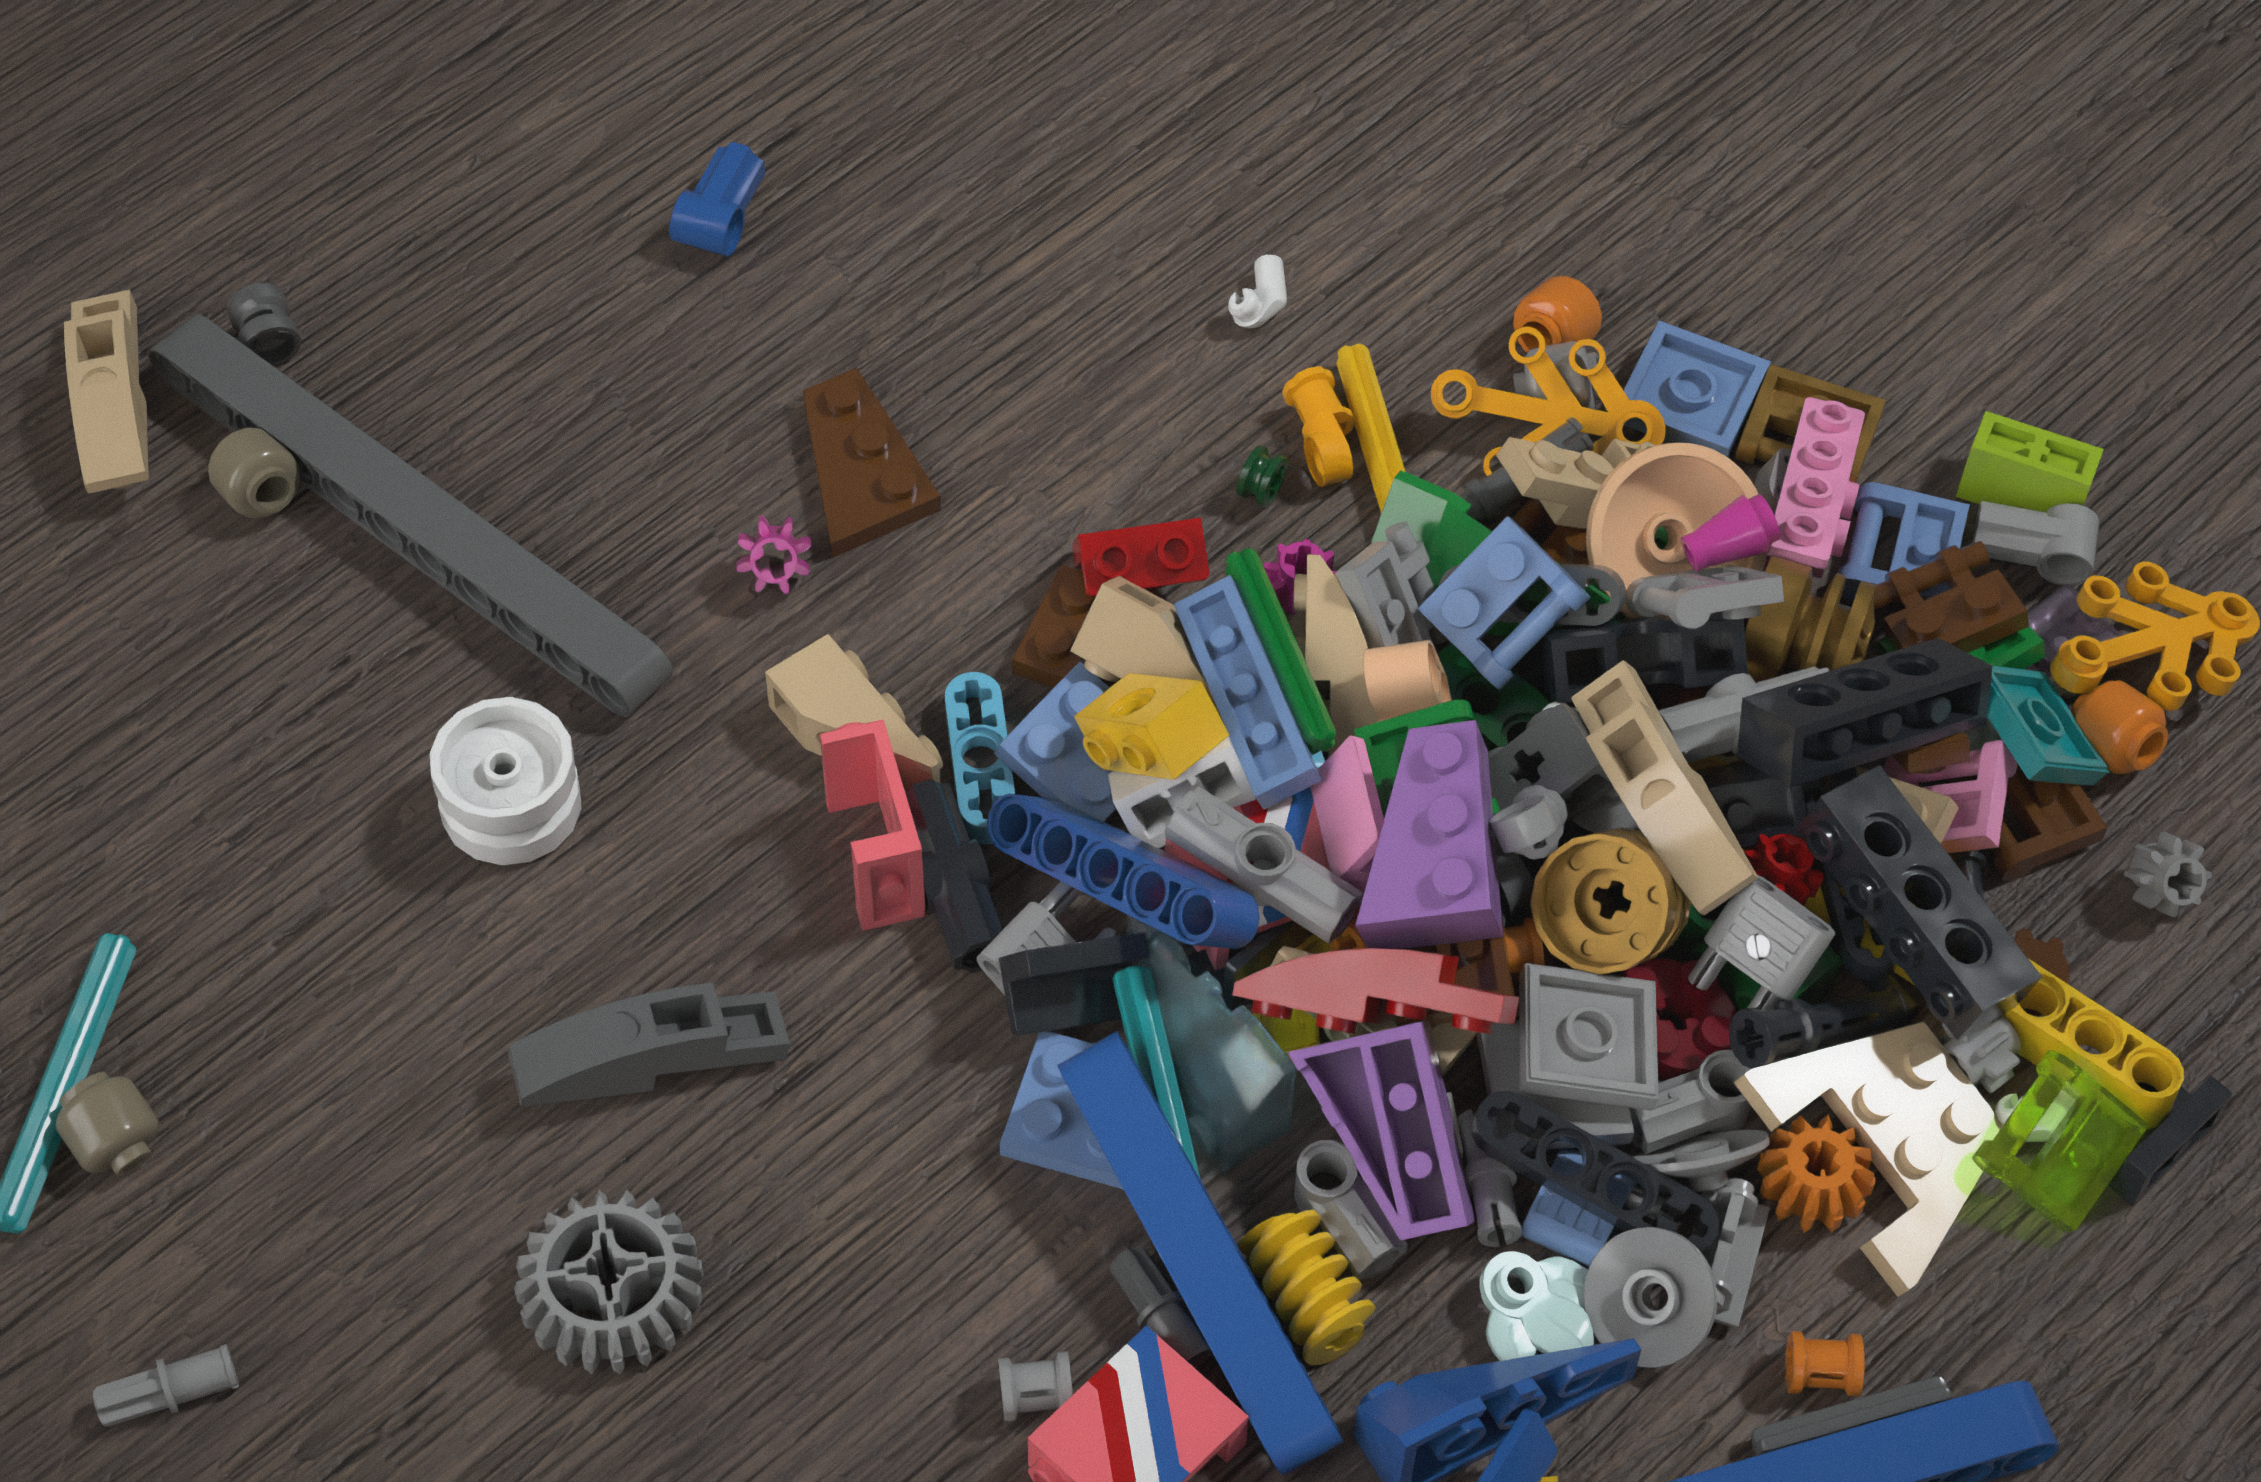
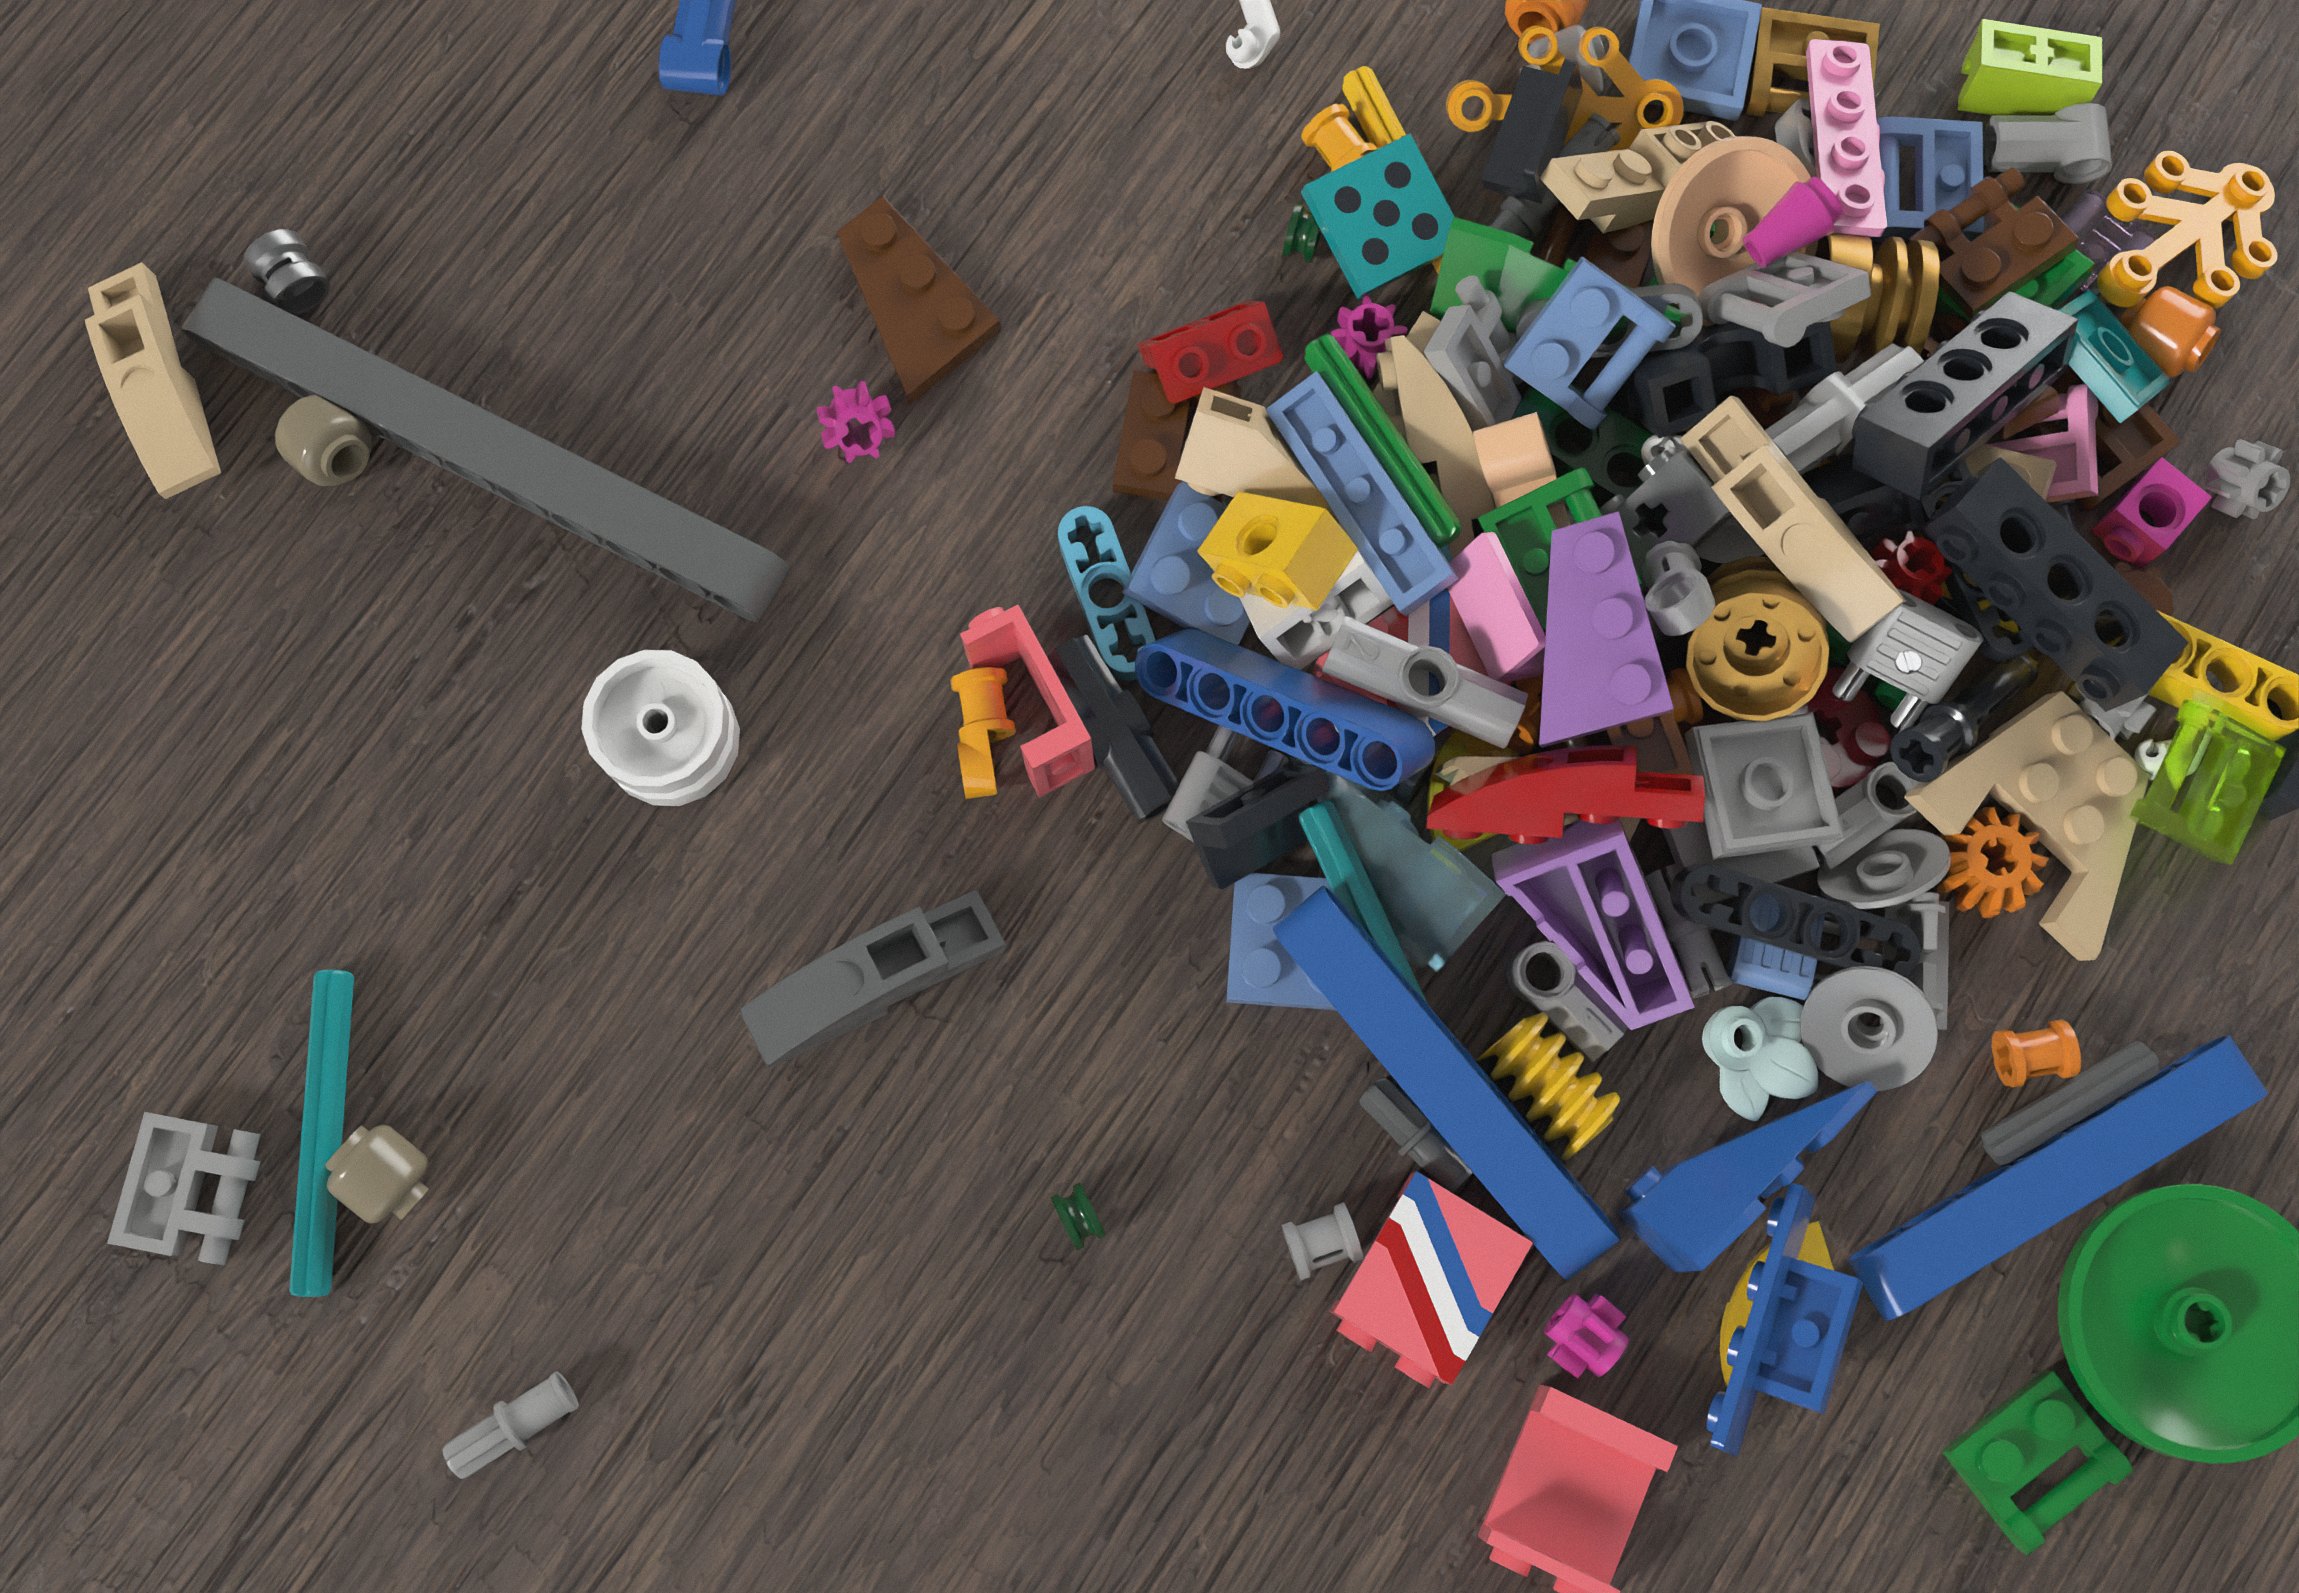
camera: 10 degrees left, 20 degrees up
(555, 1281) = (844, 1248): light grey gear -> none
(793, 1310) = (1078, 1216): none -> dark green bush
(823, 848) = (983, 723): none -> light orange connector
(830, 688) = (960, 578): tan slope -> none
(1335, 467) = (1381, 215): none -> teal tile
(1512, 407) = (1533, 131): none -> black panel
(2067, 866) = (2167, 498): none -> dark pink brick

